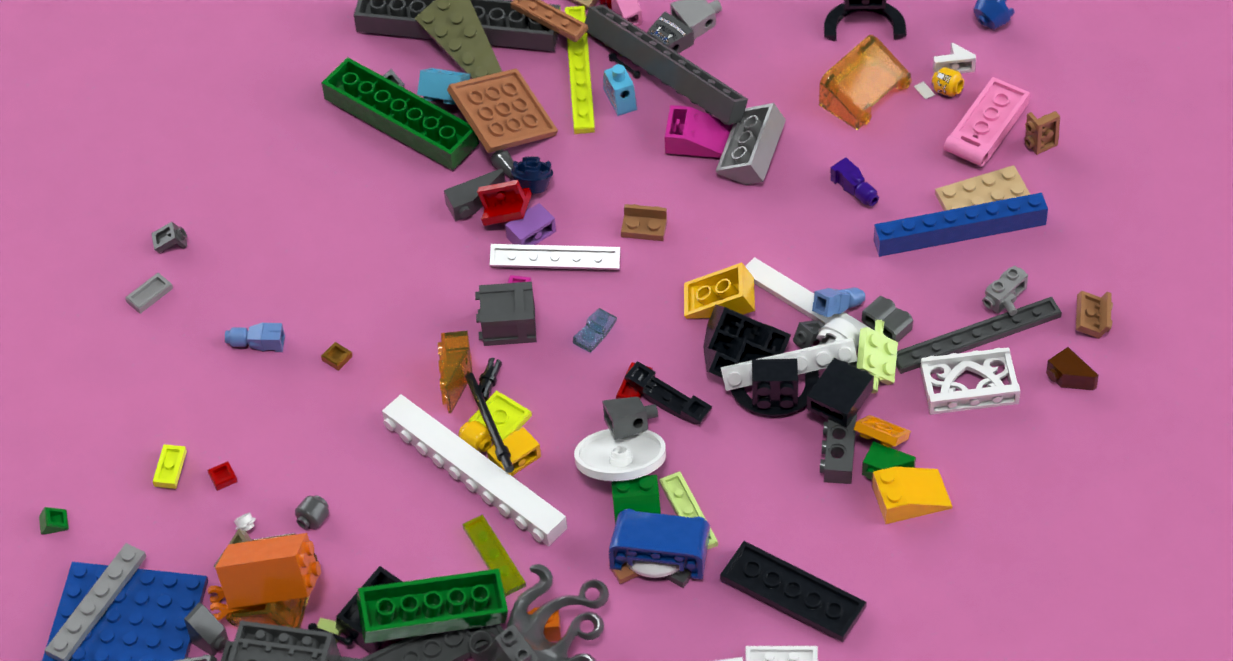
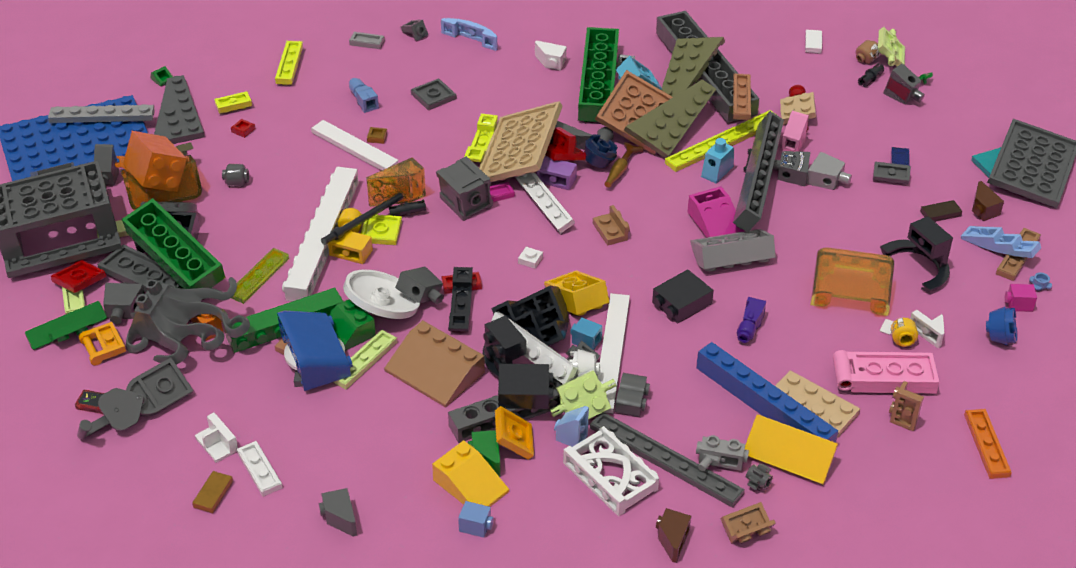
camera: 55 degrees right, 10 degrees down
(135, 383) = (289, 62): none -> neon yellow plate
(160, 533) = (177, 113): none -> dark grey wing
(221, 186) = (469, 29): none -> light blue slope
(245, 522) = (208, 150): white plate -> none
(303, 274) = (433, 94): none -> dark grey tile
(325, 139) = (550, 54): none -> slope
(334, 592) = (177, 206): none -> dark grey tile
(340, 384) = (353, 145): none -> white tile
(423, 267) = (485, 130): none -> neon yellow slope
(469, 232) = (520, 142): none -> tan plate
(532, 94) = (668, 123): none -> olive wing
(560, 173) = (621, 164): none -> pearl gold piece
(590, 546) = (265, 325): none -> green brick
(595, 331) = (499, 243): clear light blue slope -> none
(638, 310) = (530, 257): none -> white plate
(741, 454) = (435, 364): none -> medium nougat slope
(785, 315) = (586, 331): none -> dark azure brick
(786, 217) = (682, 296): none -> black brick
(793, 591) = (325, 446): black plate -> none
(836, 301) = (620, 353): medium blue piece -> none
(887, 611) = (338, 511): none -> dark grey slope
(904, 381) = (573, 426): none -> light blue slope
(963, 509) = (475, 519): none -> medium blue brick
(1034, 237) = (790, 449): none -> yellow tile
(1048, 277) = (759, 477): none -> dark grey gear
(1106, 103) = (987, 444): none -> orange tile

